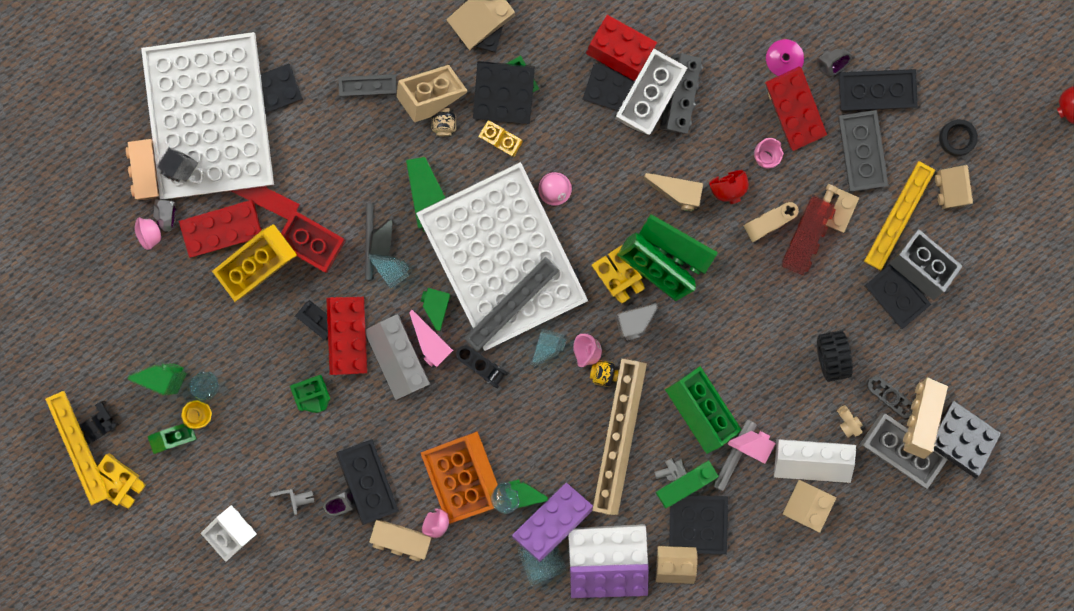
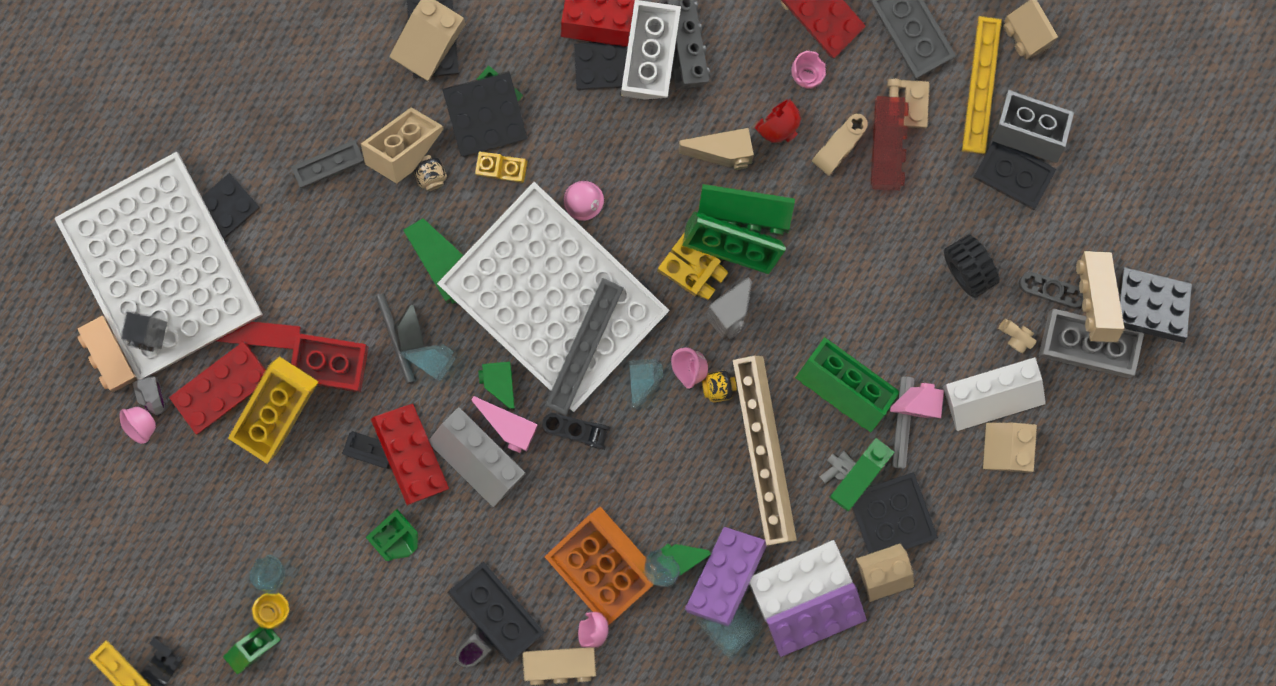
camera: 25 degrees left, 5 degrees down
(161, 378) = (213, 579): green slope -> none
(296, 500) = (422, 664): light grey bracket -> none

